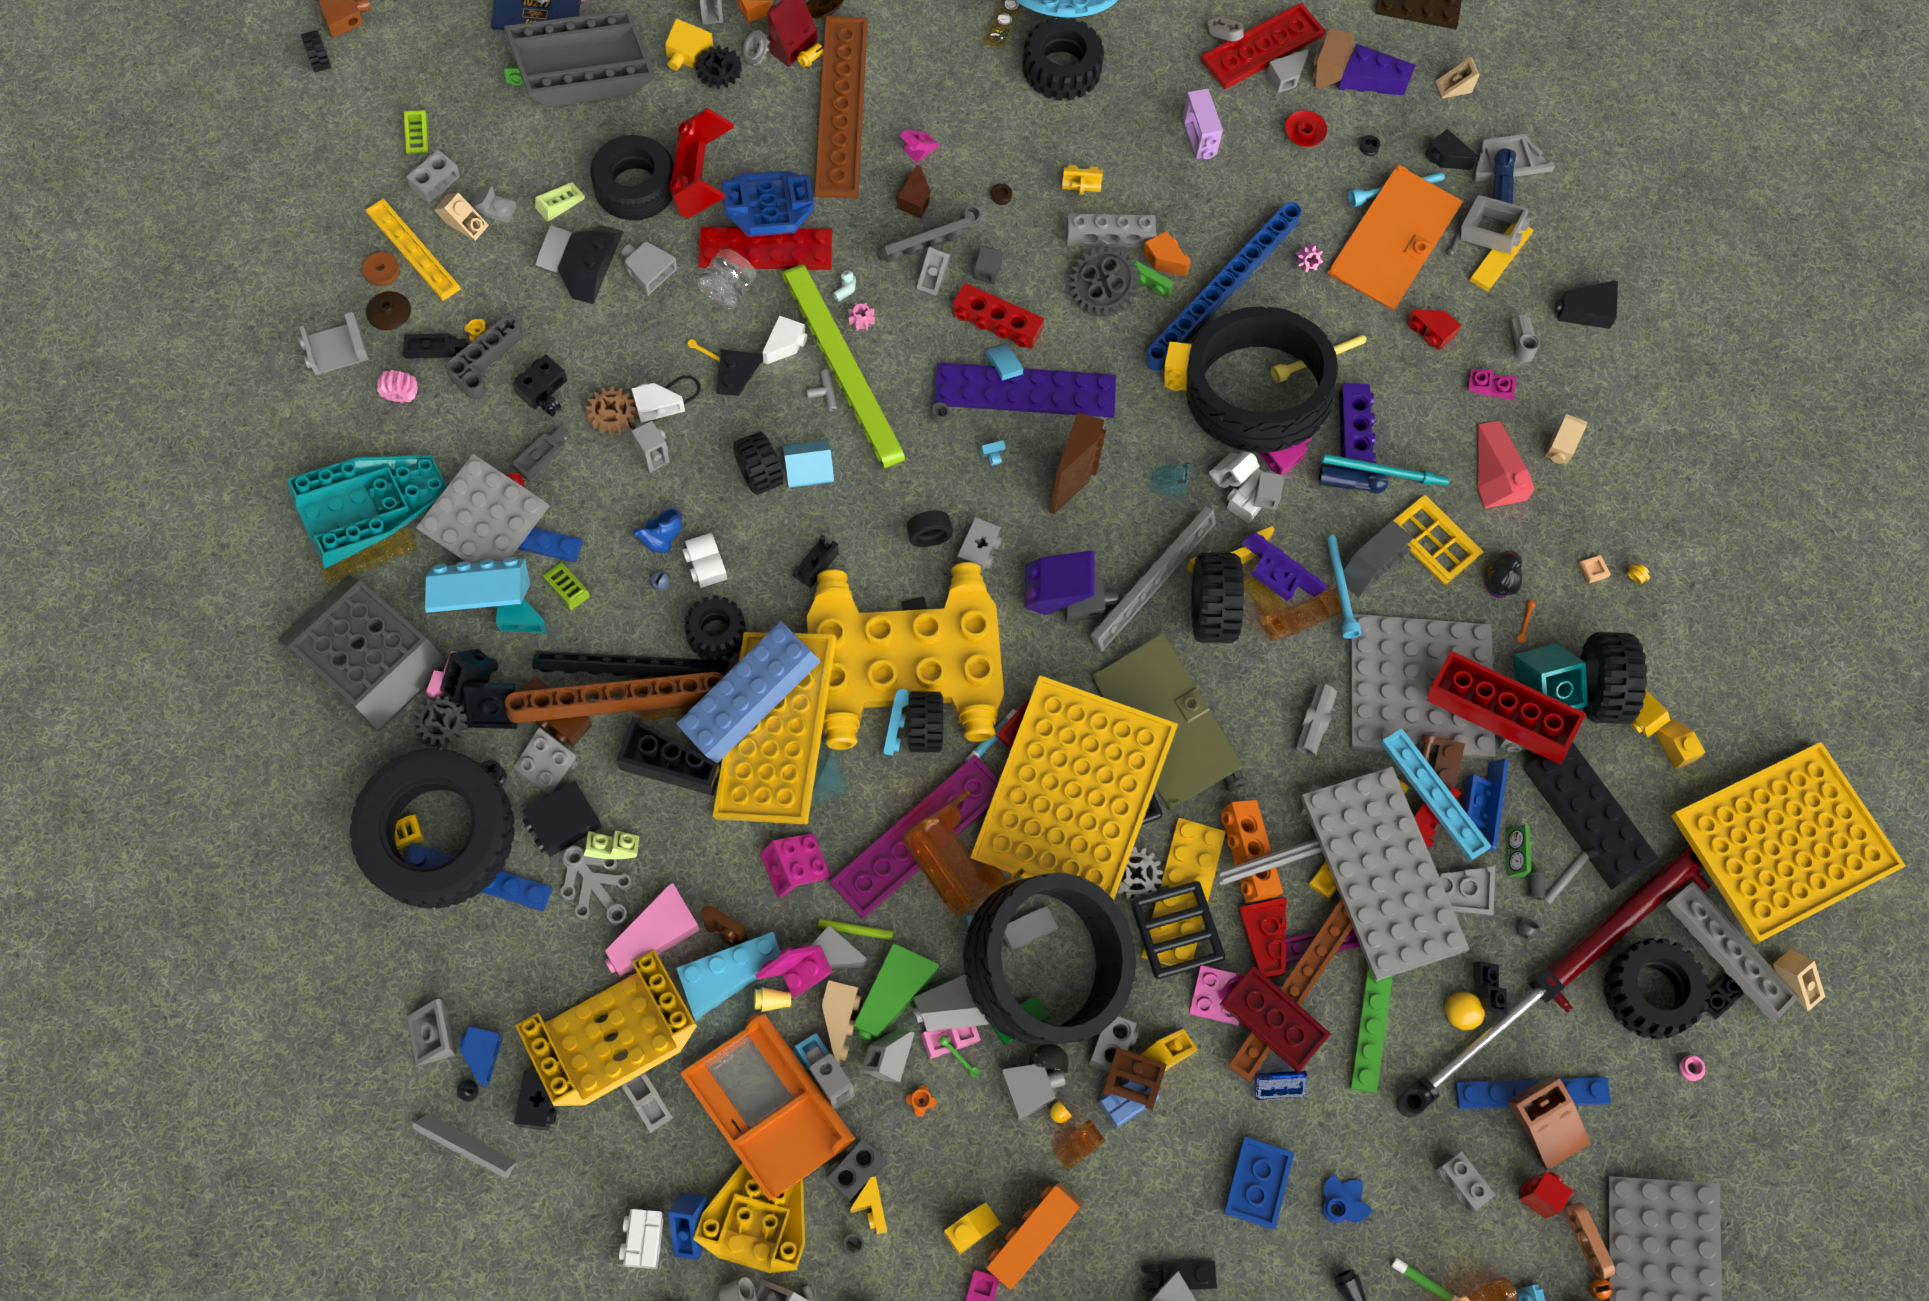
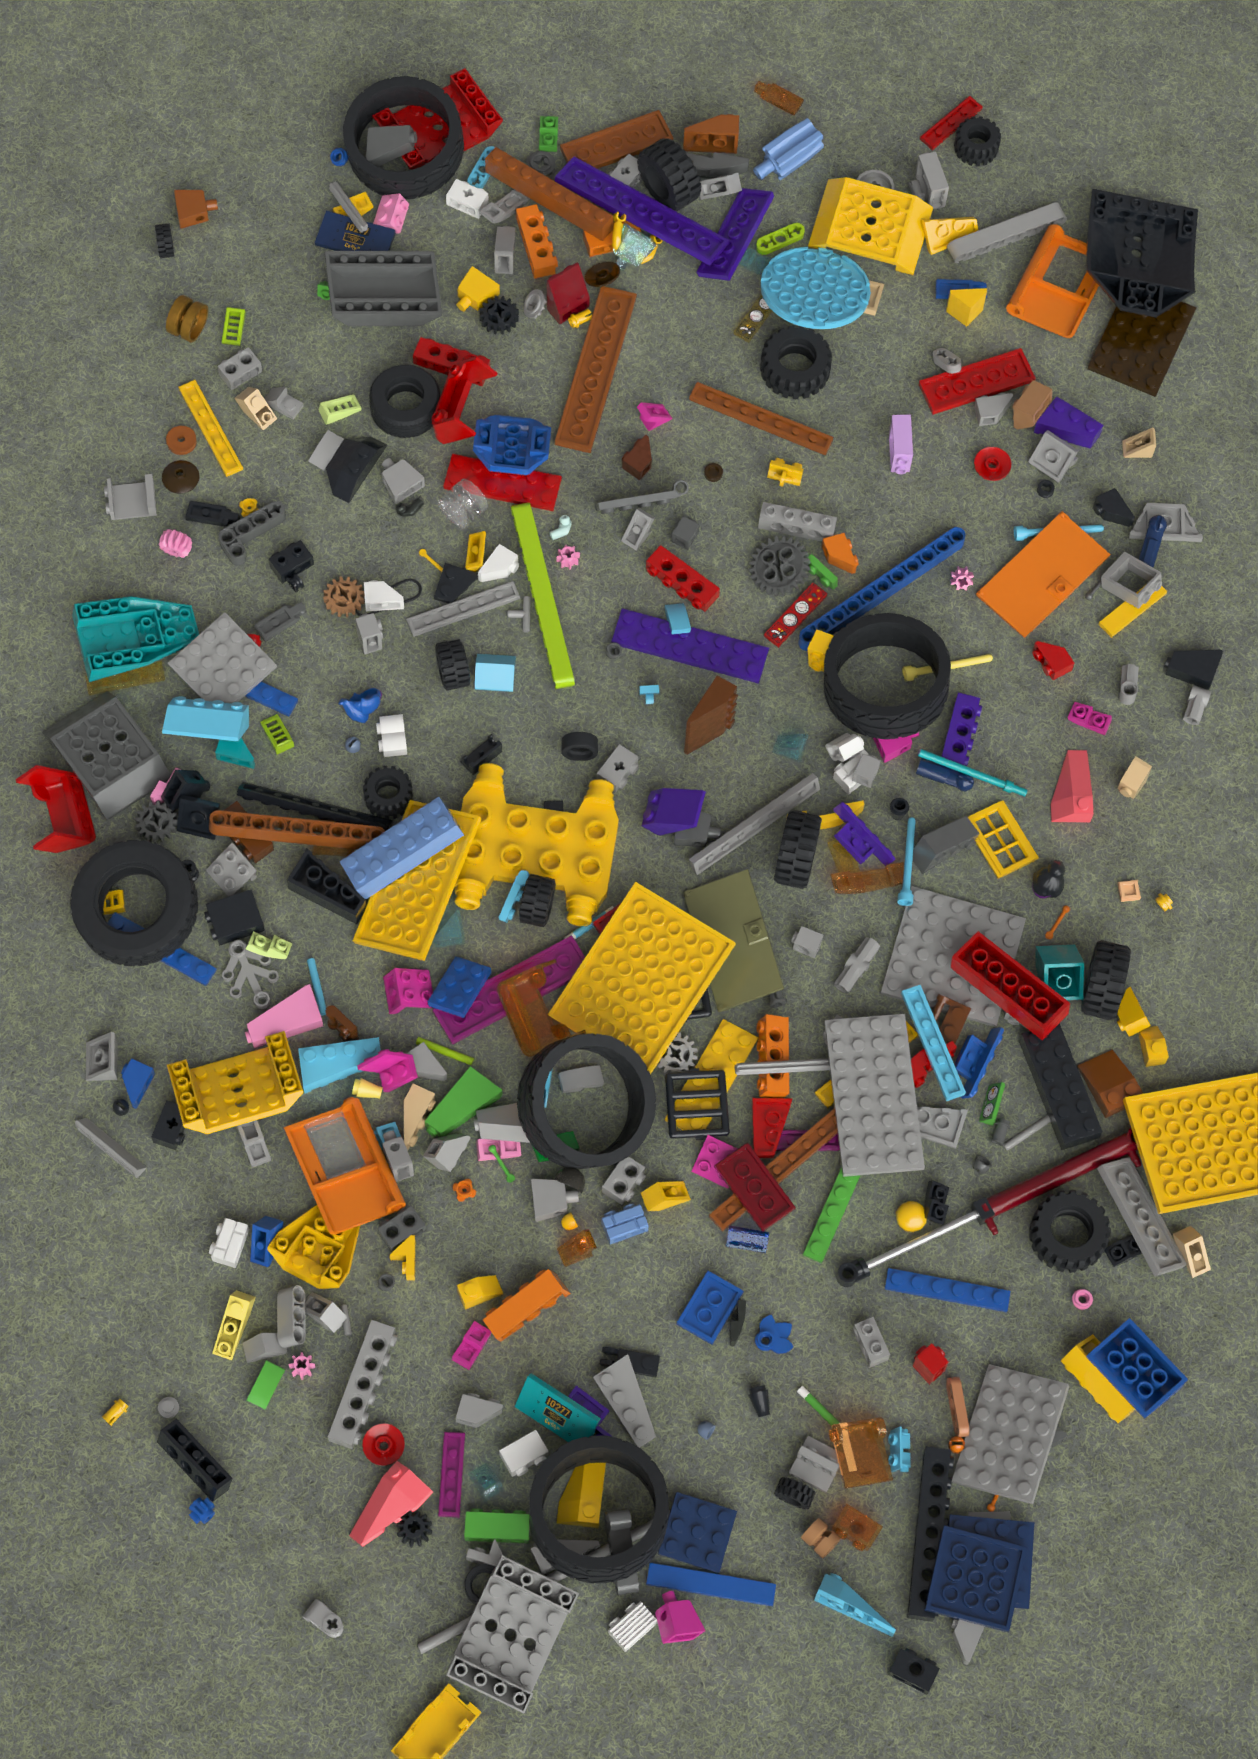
camera: 15 degrees right, 0 degrees up
(325, 726) = (65, 805): none -> red windscreen
(359, 130) = (186, 318): none -> pearl gold wheel
(661, 123) = (427, 347): none -> red brick
(665, 299) = (411, 510): none -> pearl dark grey arm
(681, 883) = (316, 986): none -> medium azure bar
(753, 398) = (463, 608): none -> light grey tile
(754, 329) = (475, 551): none -> yellow slope
(856, 846) = (459, 987): none -> blue plate
(1039, 126) = (761, 418): none -> dark orange plate
(1135, 333) = (795, 615): none -> red tile
(1137, 1070) = (634, 1200): reddish brown plate -> none
(1252, 704) = (807, 941): none -> light grey brick
(1298, 1203) = (736, 1326): none -> pearl dark grey slope
(1314, 527) = (899, 808): none -> black cone
(1370, 107) = (1053, 456): none -> light grey bracket
(1550, 1121) = (951, 1312): slope -> none
(1604, 346) = (1197, 702): none -> light grey piece
(1645, 796) = (1109, 1082): none -> dark orange slope
(1751, 1163) = (1094, 1381): none -> yellow slope
(1790, 1142) = (1137, 1368): none -> blue slope

